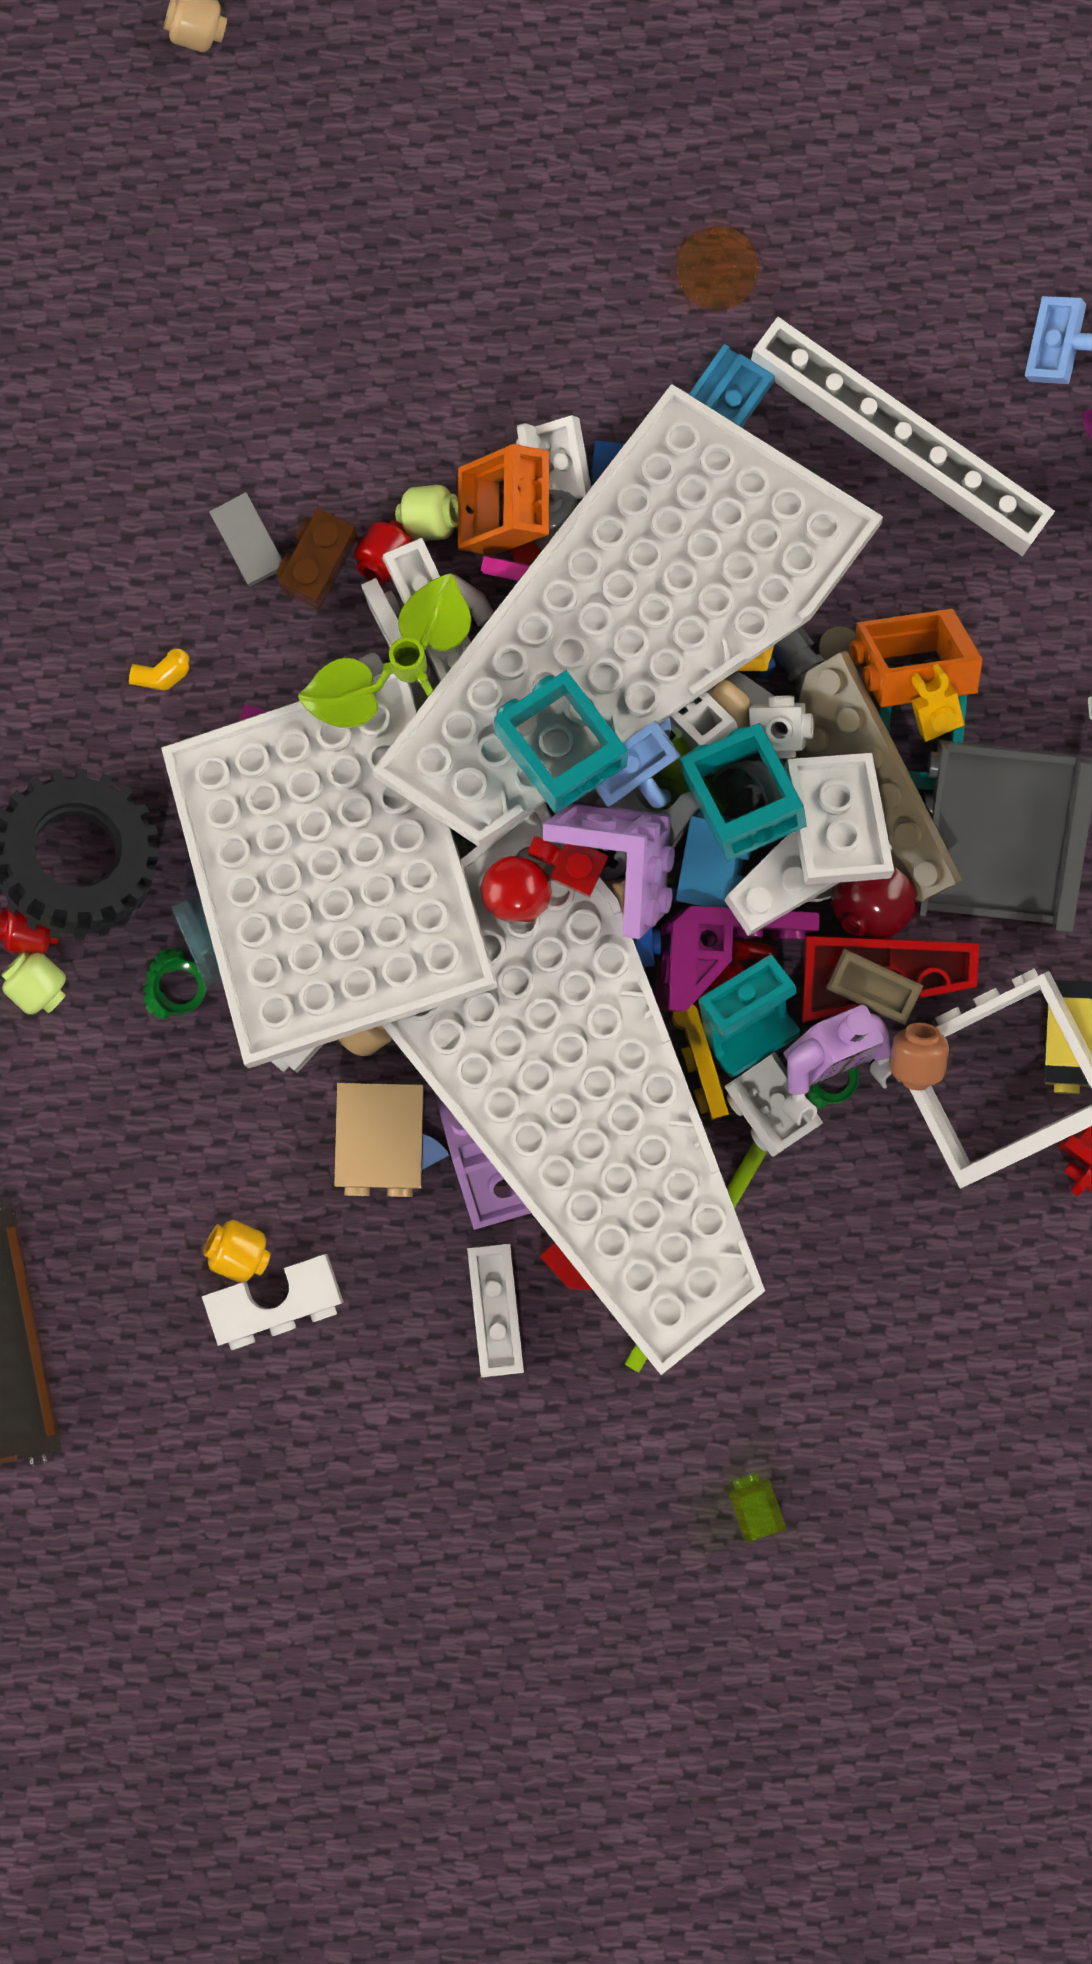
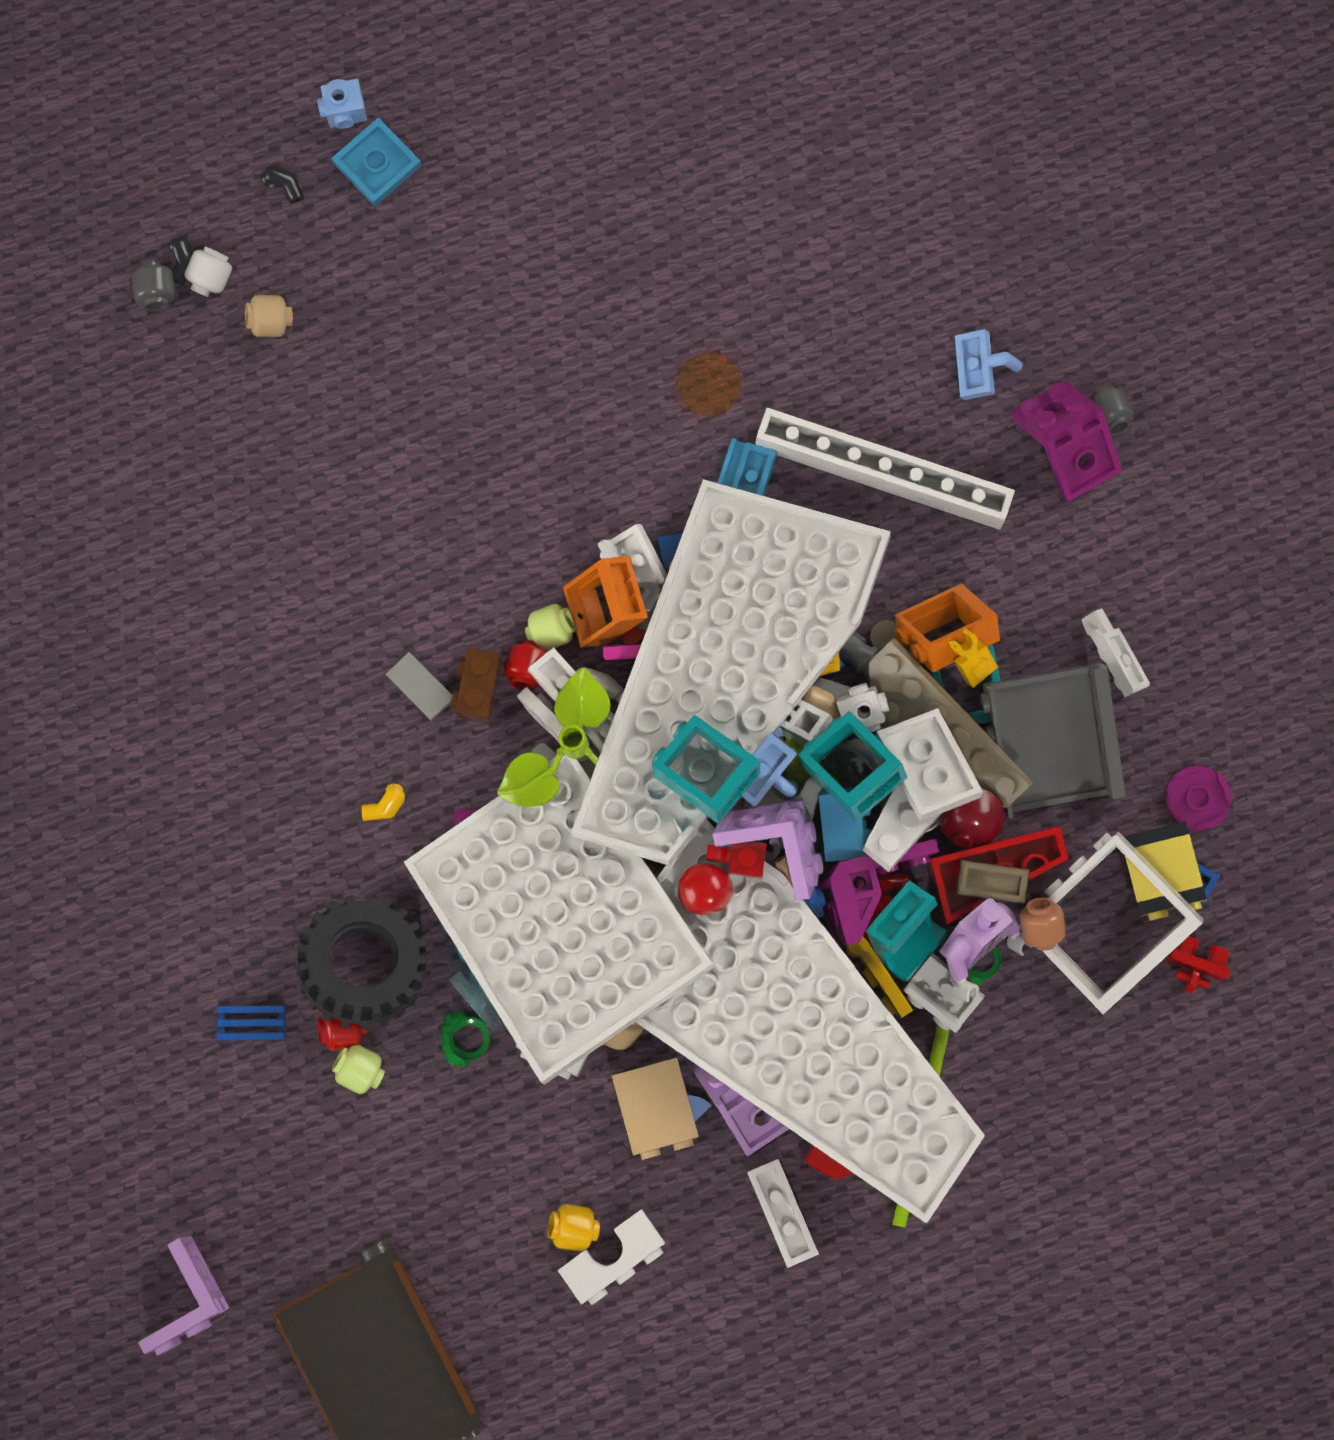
camera: 15 degrees left, 5 degrees down
(755, 1507) = (1025, 1304): clear neon green brick -> none

